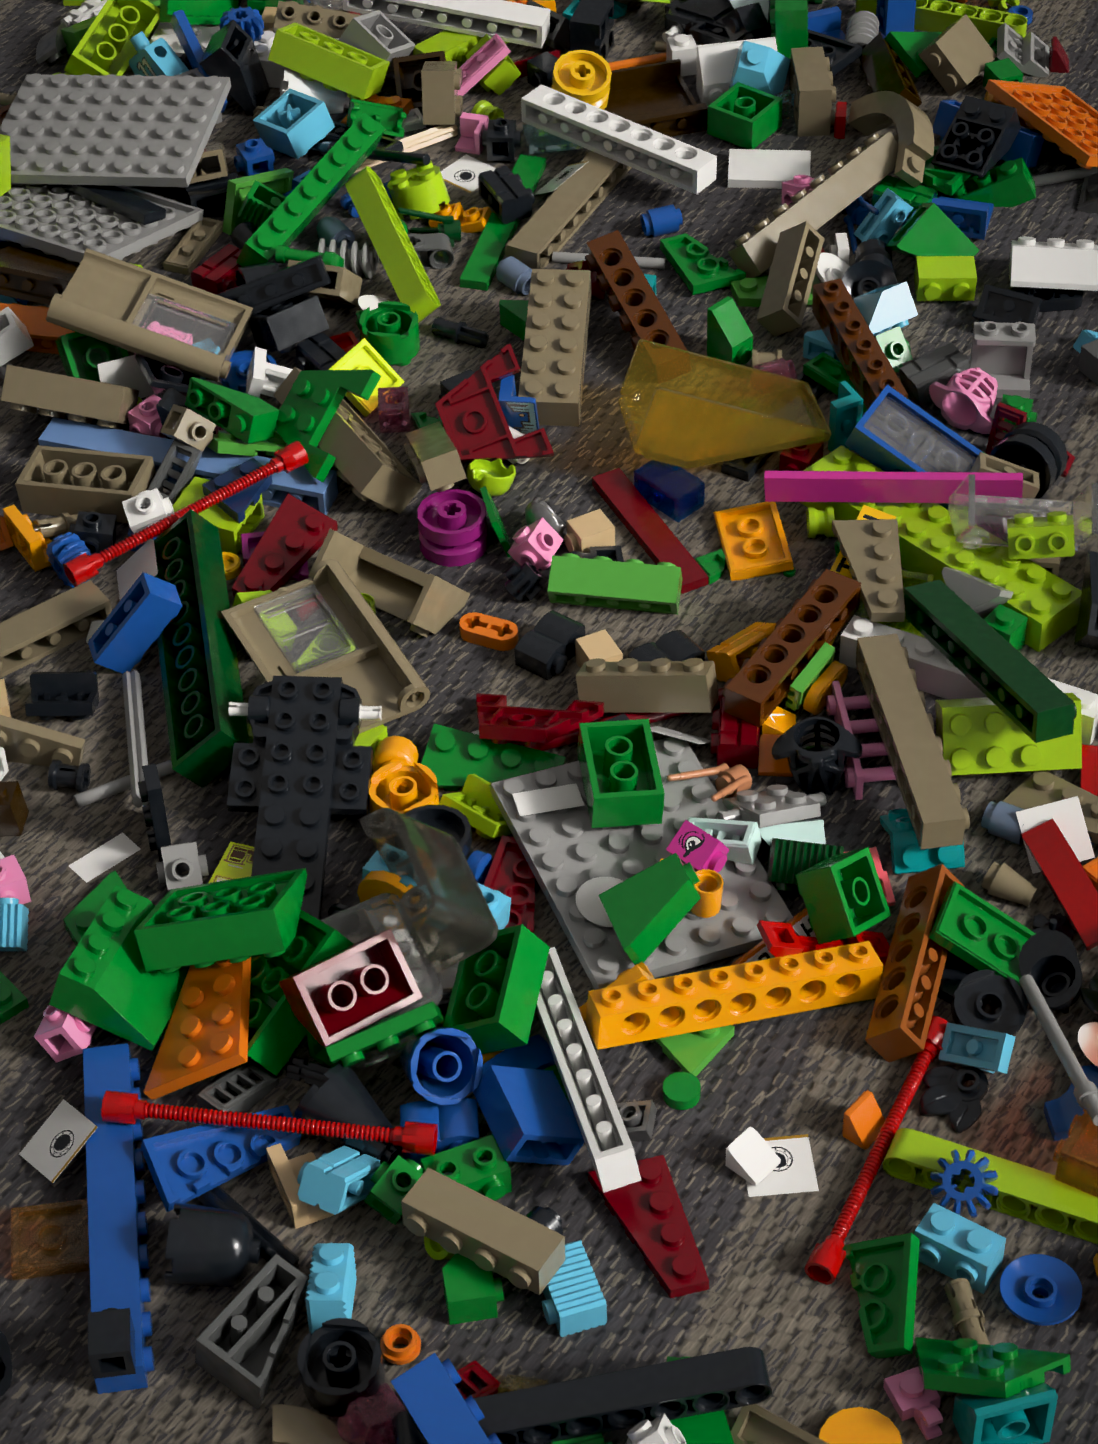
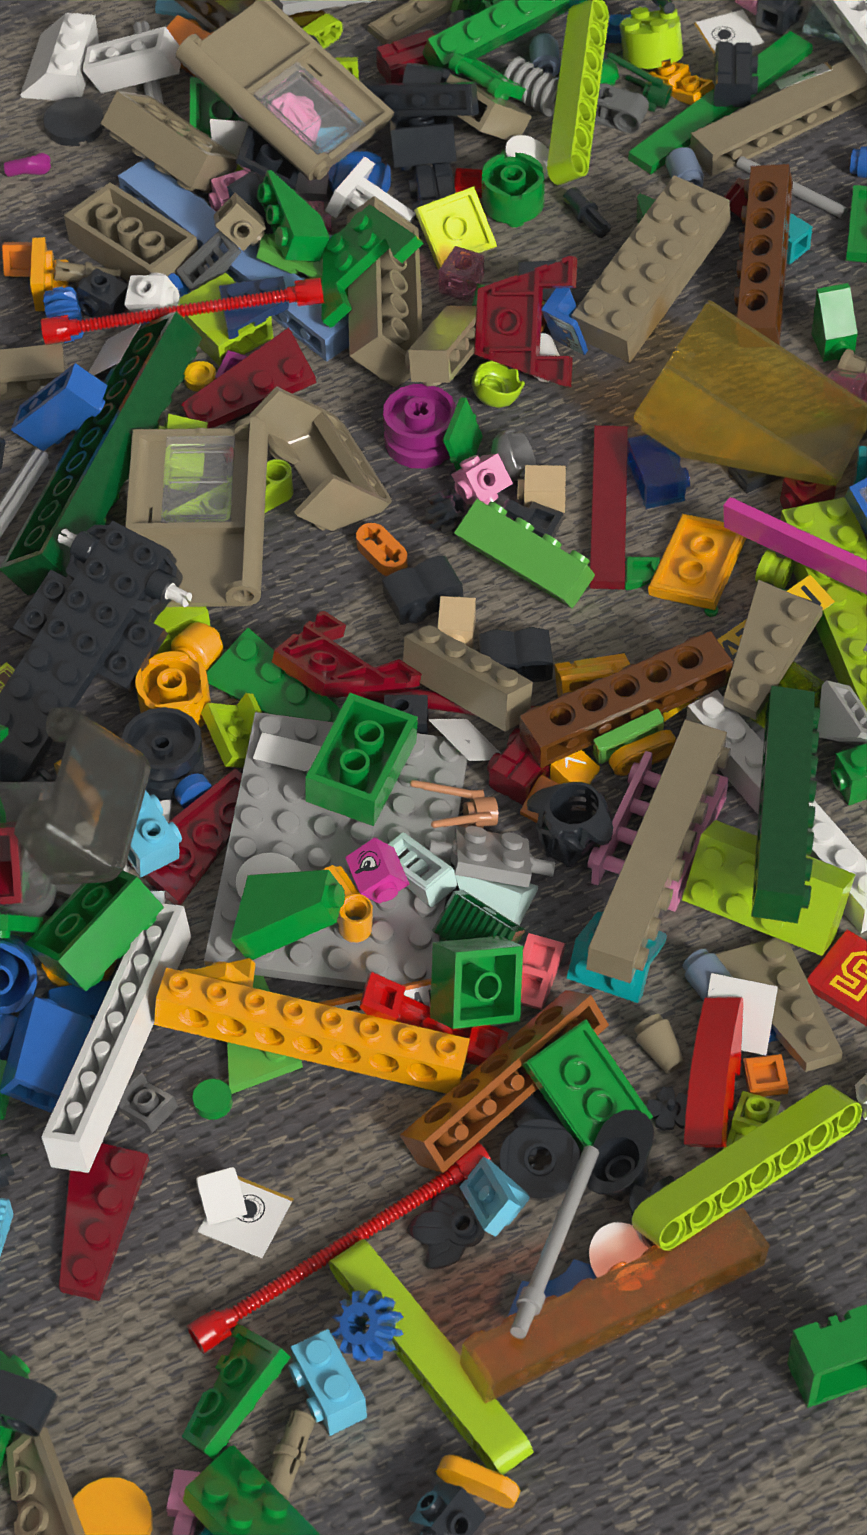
camera: 30 degrees right, 10 degrees up
(863, 1121) = (343, 1212): orange slope -> none
(1043, 1276) = (372, 1443): blue dish -> none

